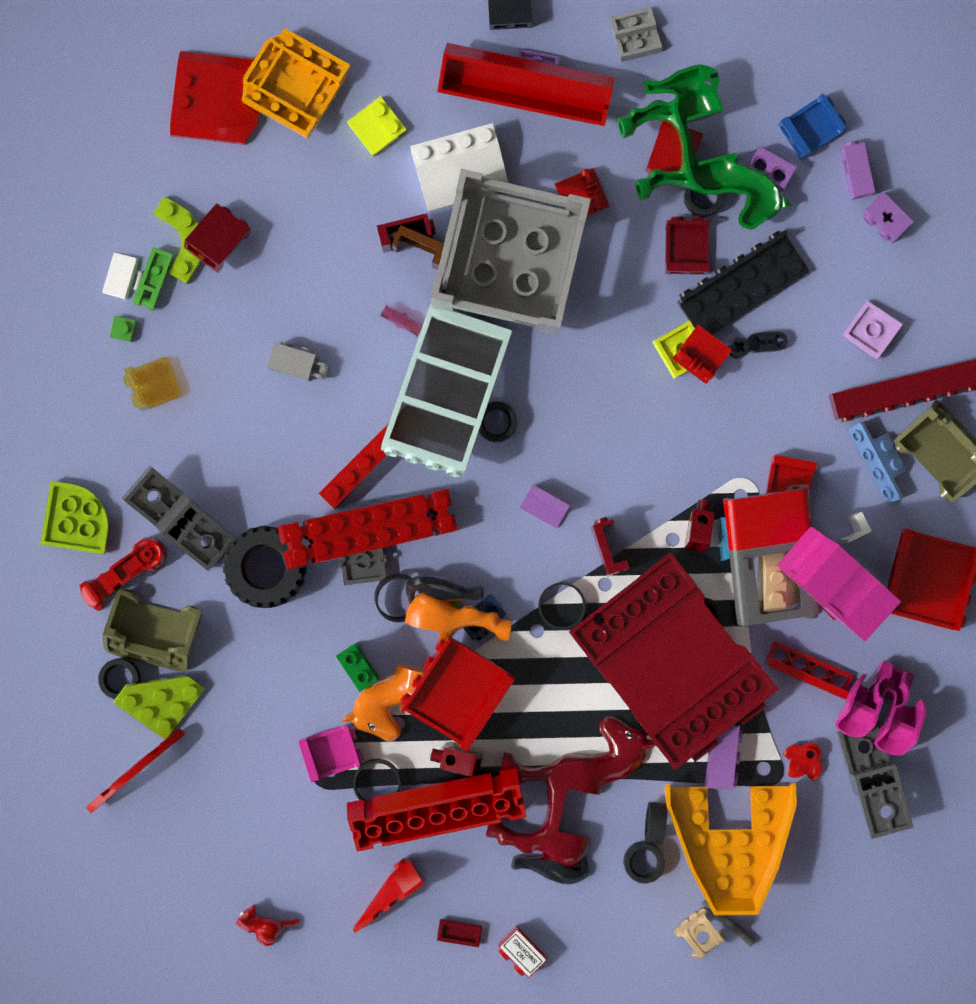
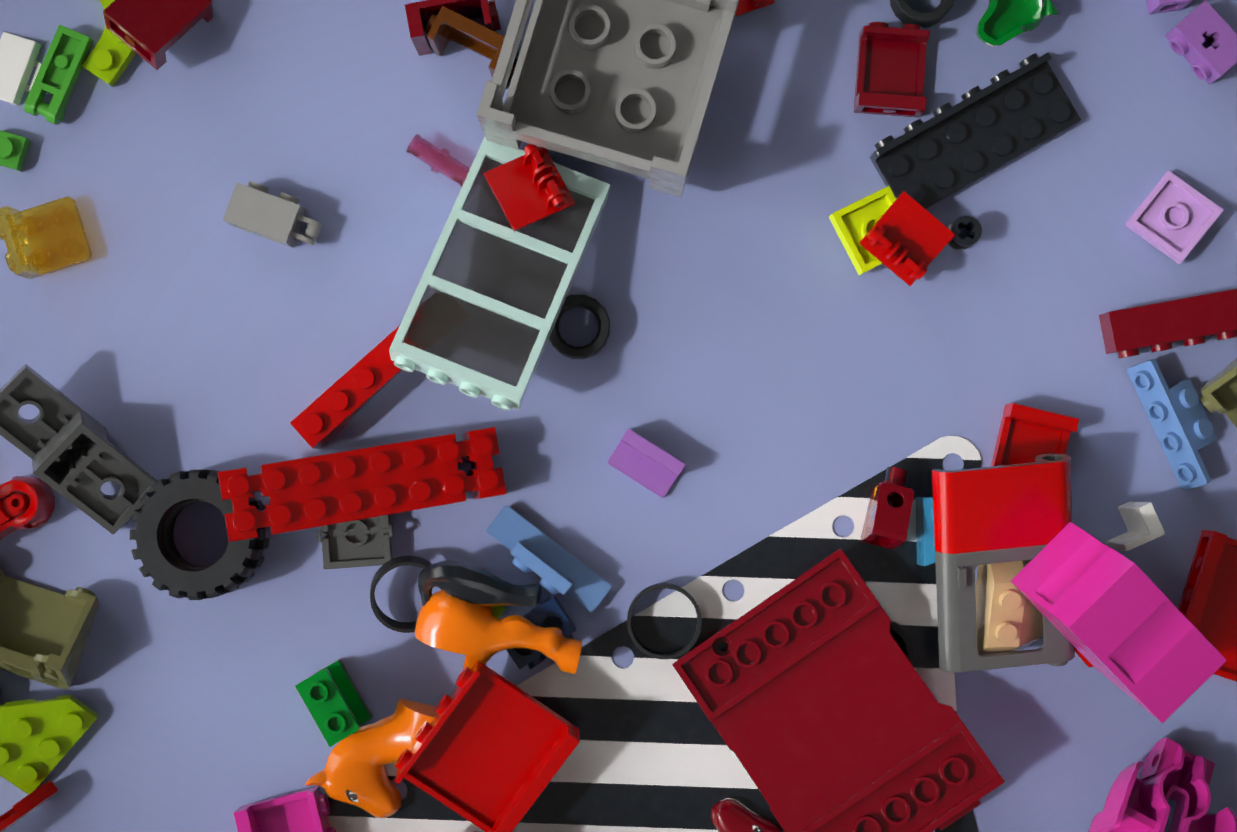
camera: 15 degrees right, 0 degrees up
(461, 336) = (529, 187): none -> red hinge
(487, 571) = (547, 559): none -> medium blue bracket
(603, 548) = (735, 539): dark red panel -> none
(767, 336) = (1007, 219): black beam -> none
(808, 678) = (1046, 759): red fence -> none

